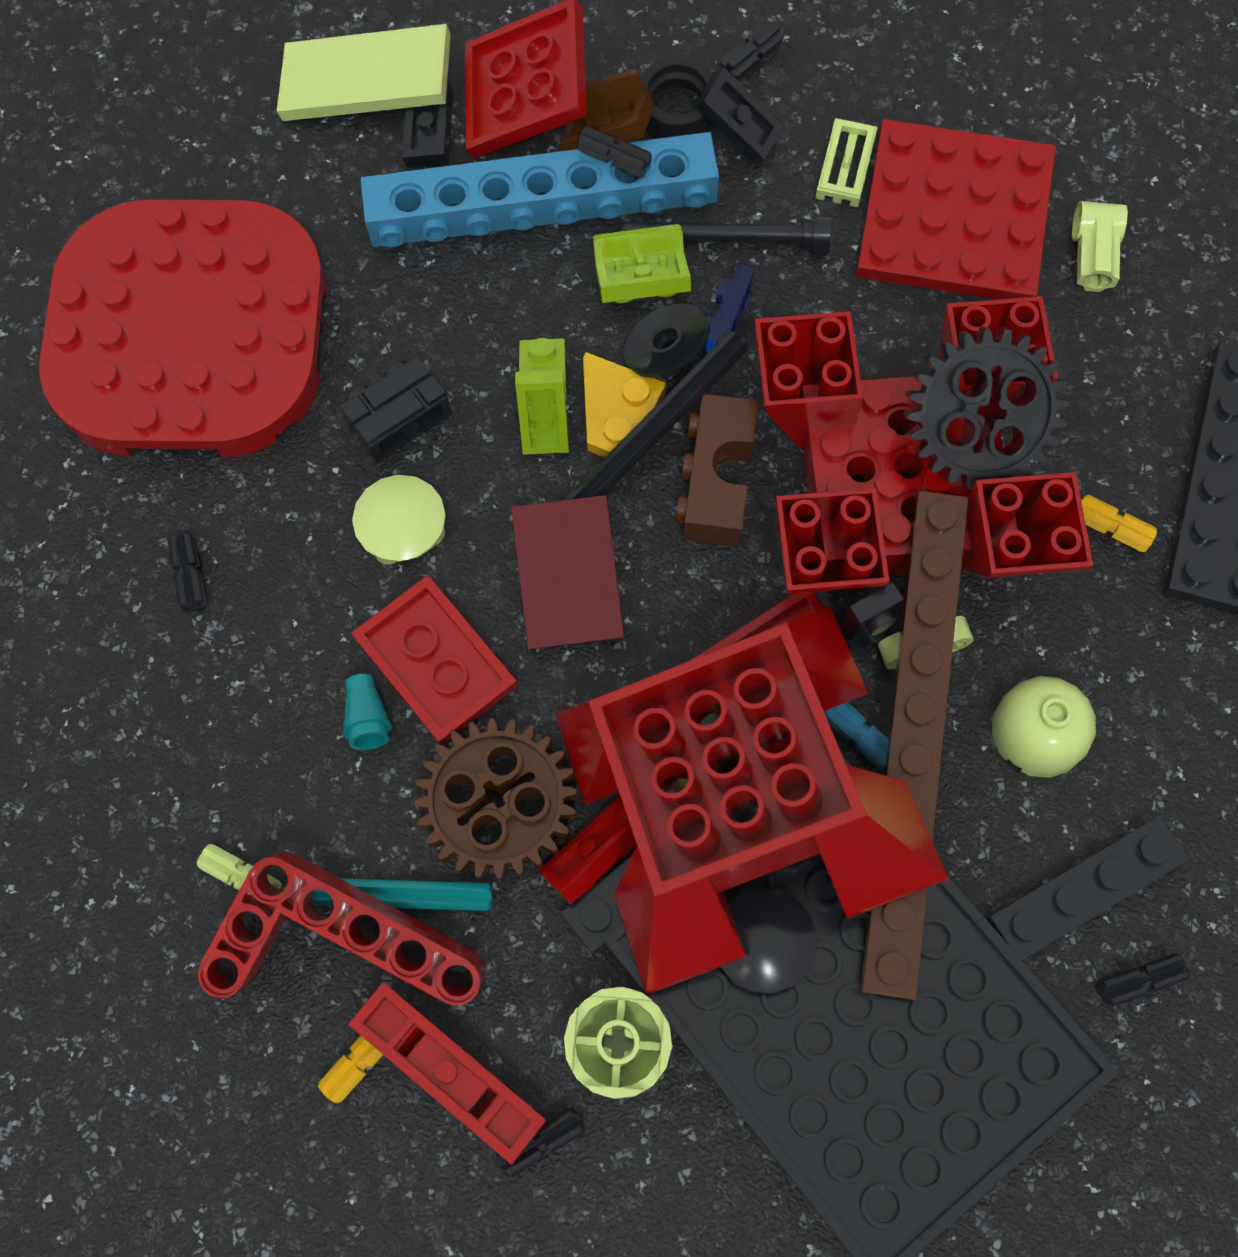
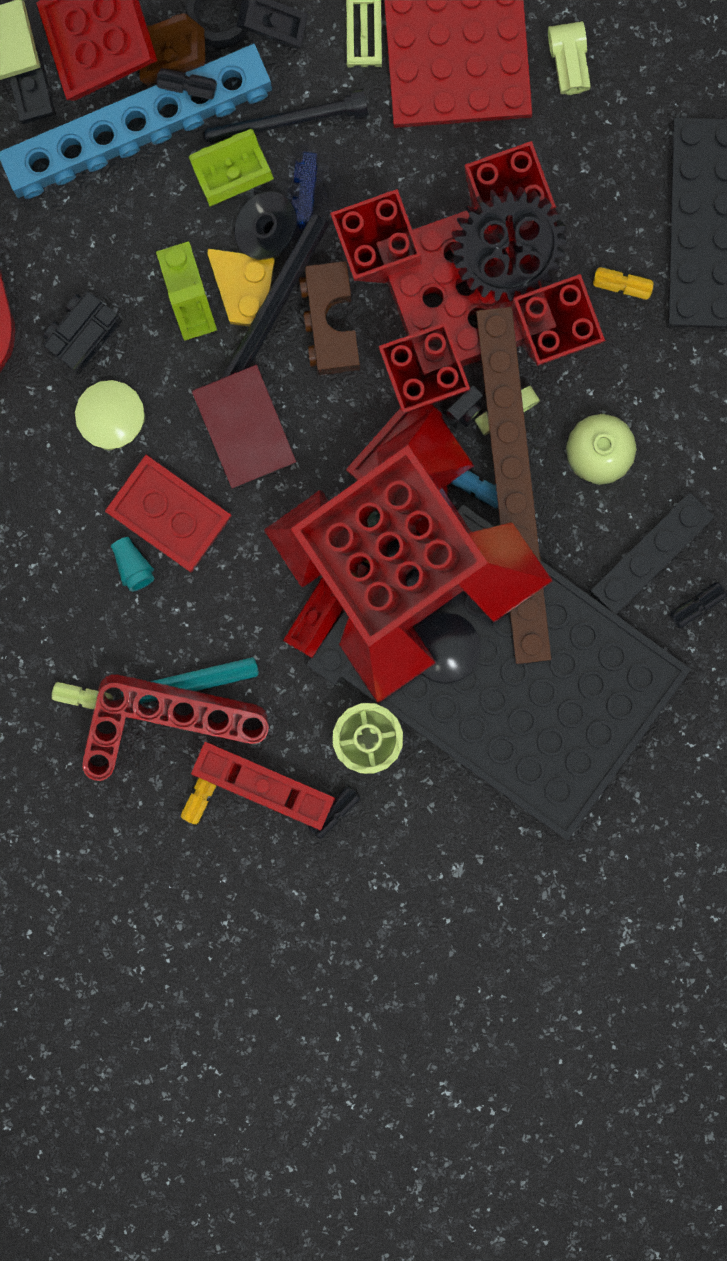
camera: 10 degrees left, 15 degrees up
(521, 835) = (265, 621): reddish brown gear -> none

